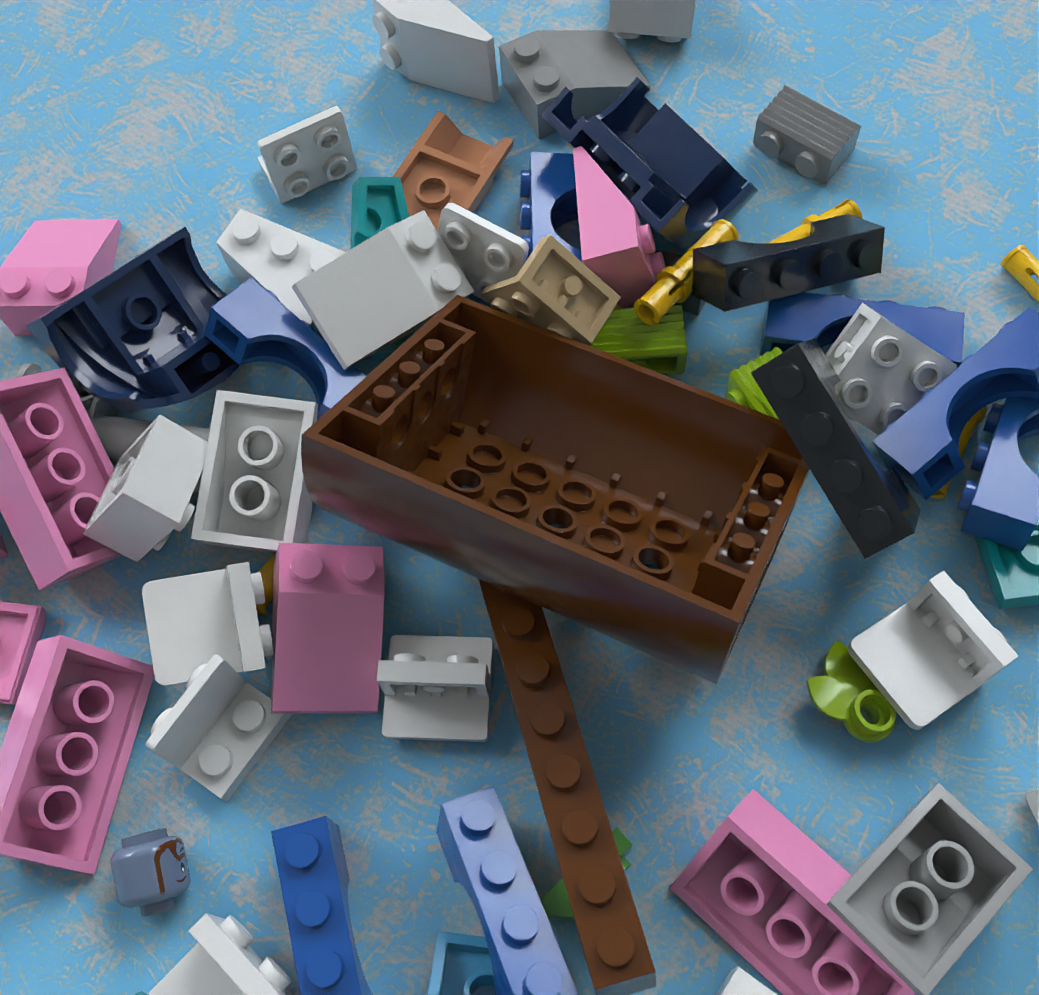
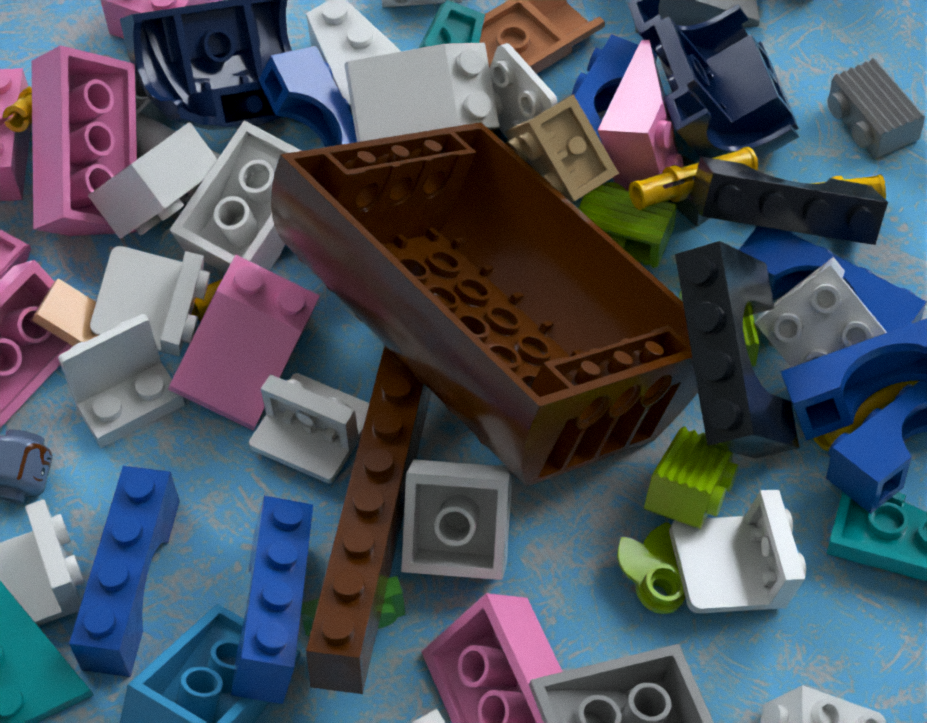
camera: 20 degrees right, 10 degrees down
(128, 677) = (66, 313): none -> light nougat tile
(648, 738) = (456, 519): none -> white brick
(845, 590) = (690, 480): none -> lime brick

